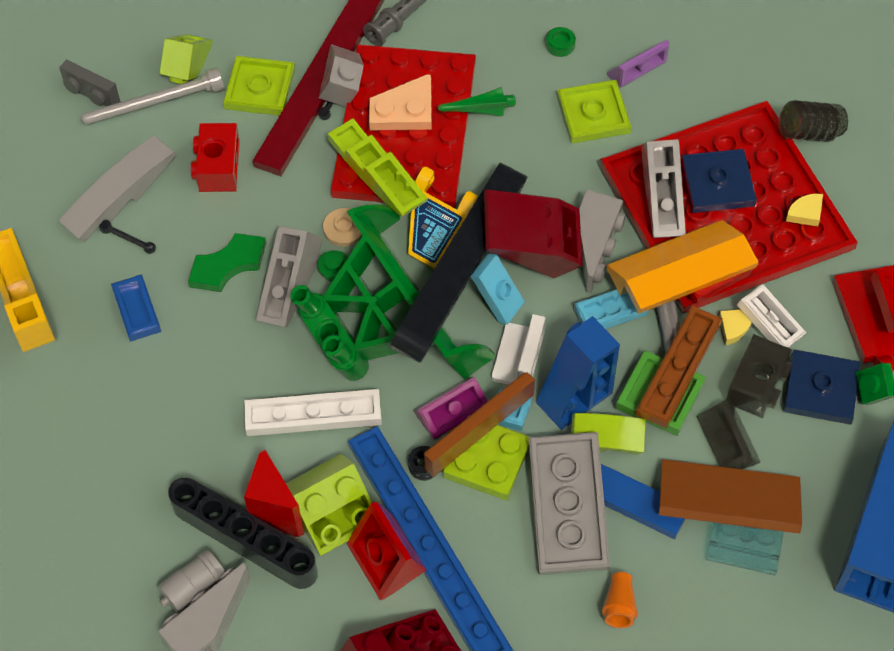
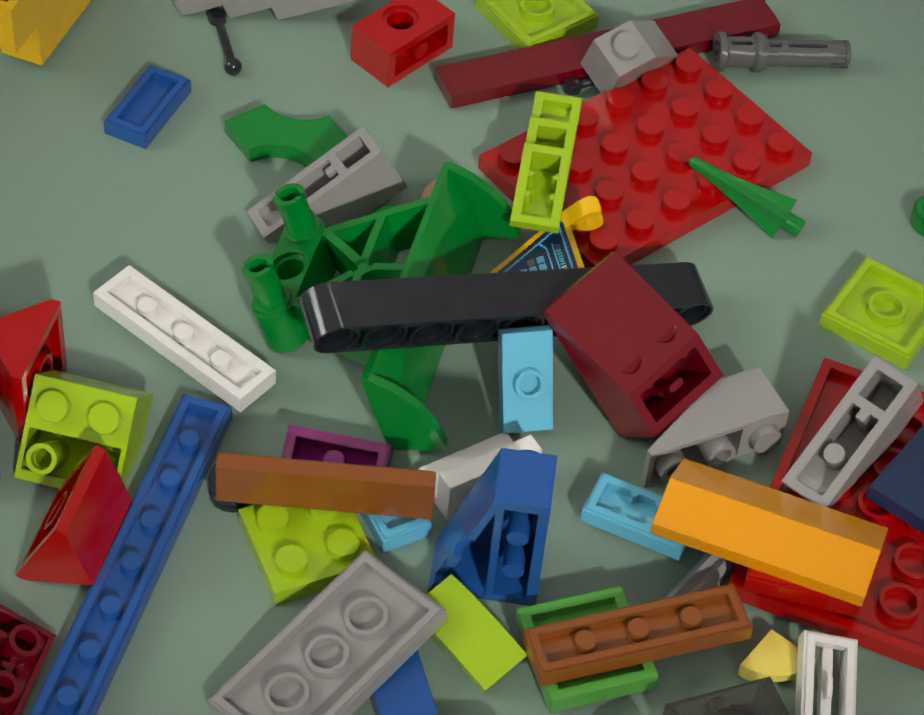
camera: 40 degrees right, 10 degrees down
(403, 107) = (656, 134): light nougat wing -> none

